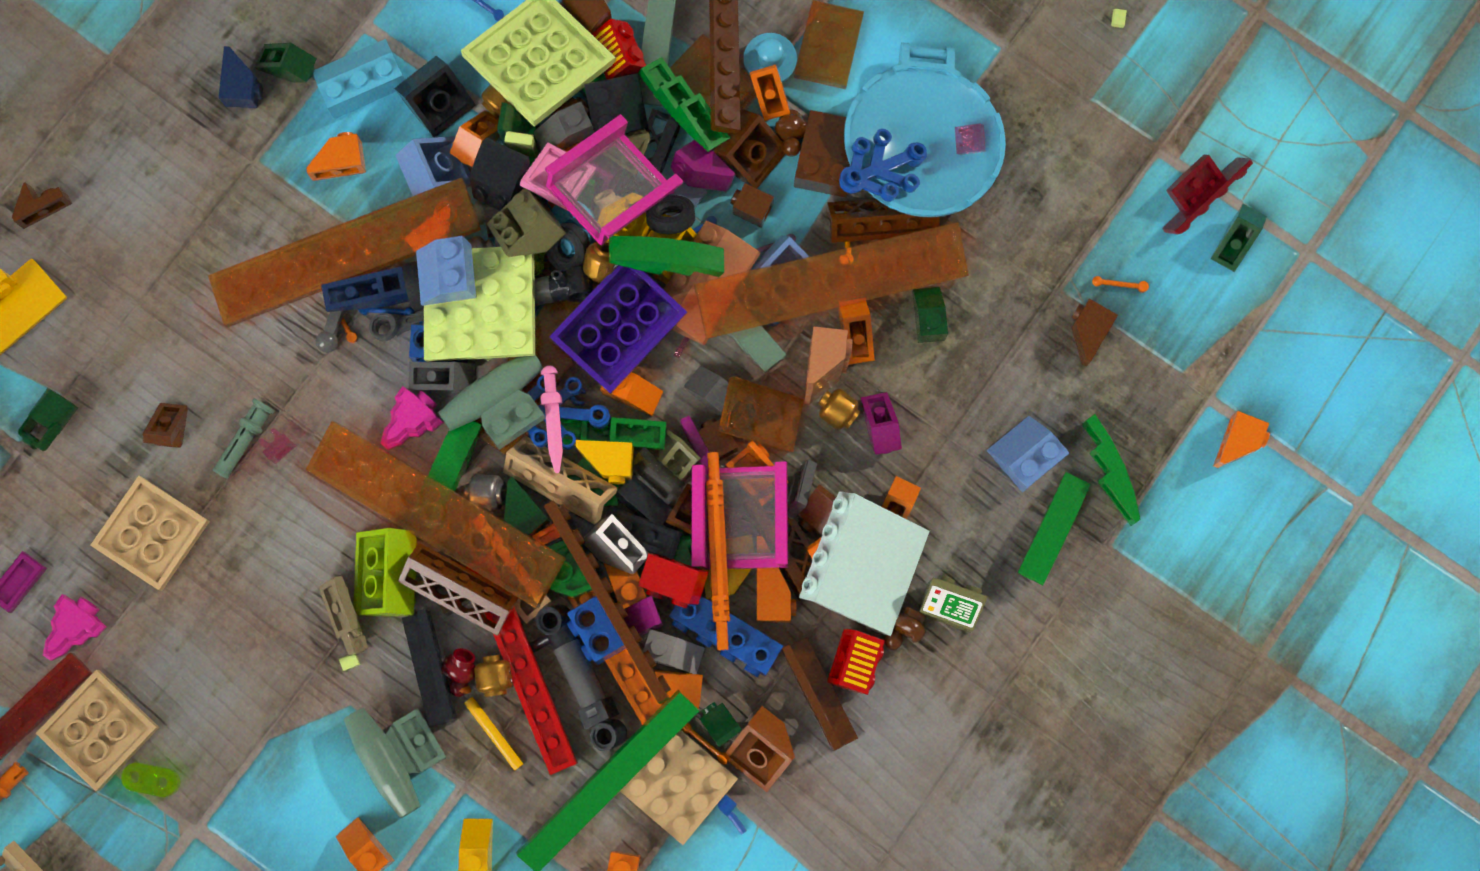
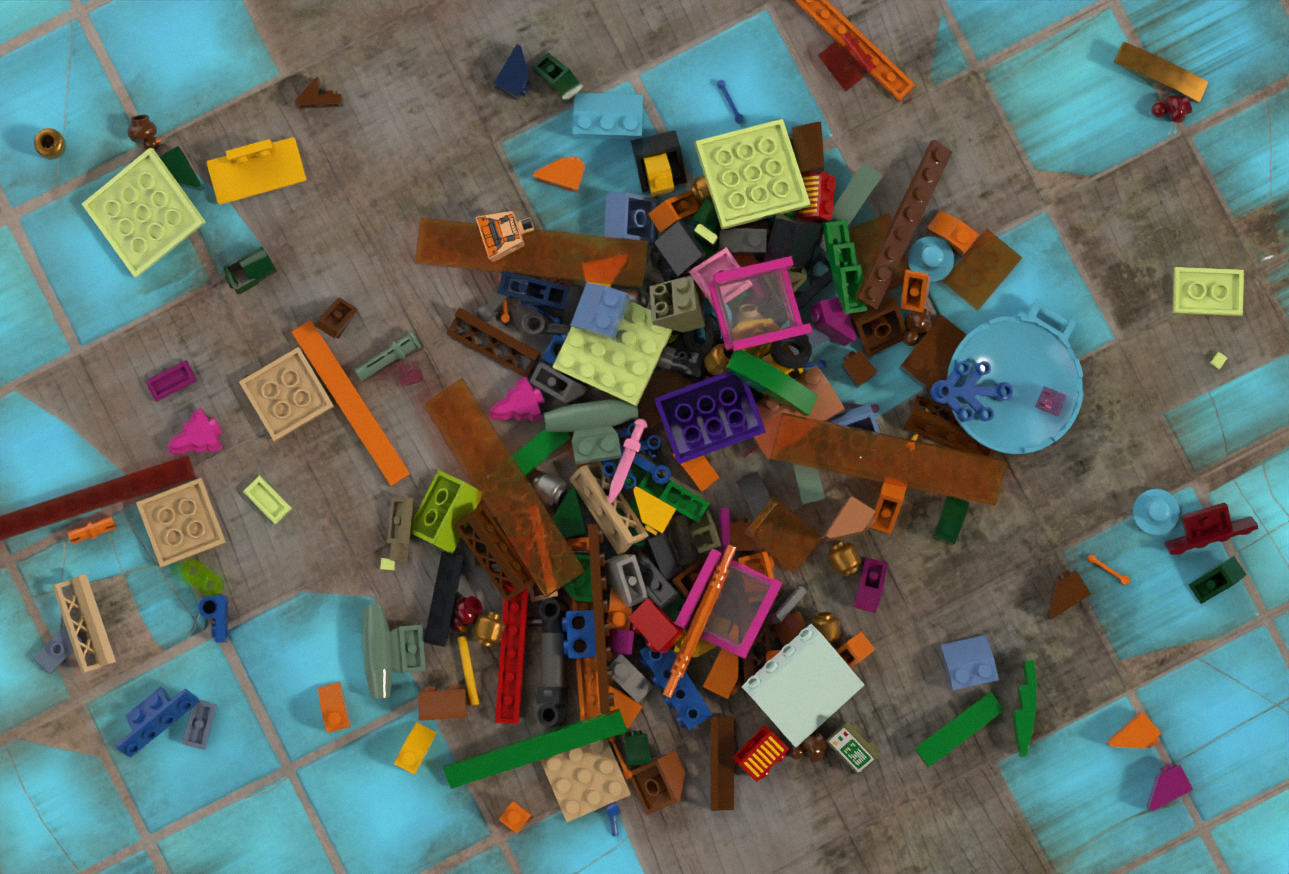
camera: 25 degrees right, 5 degrees up
(183, 658) = (267, 500): none -> yellowish green tile
(188, 810) = (220, 629): none -> blue plate
(226, 508) = (351, 403): none -> orange tile
(301, 245) = (503, 233): none -> torso
(346, 358) = (496, 334): none -> reddish brown fence
(442, 108) = (659, 175): none -> yellow slope
(481, 784) = (442, 704): none -> dark orange slope
(780, 18) = (953, 231): none -> orange slope
(858, 485) = (827, 625): none -> pearl gold head
(1137, 200) = (1156, 512): none -> medium azure plate
(1305, 477) = (1168, 786): none -> magenta slope

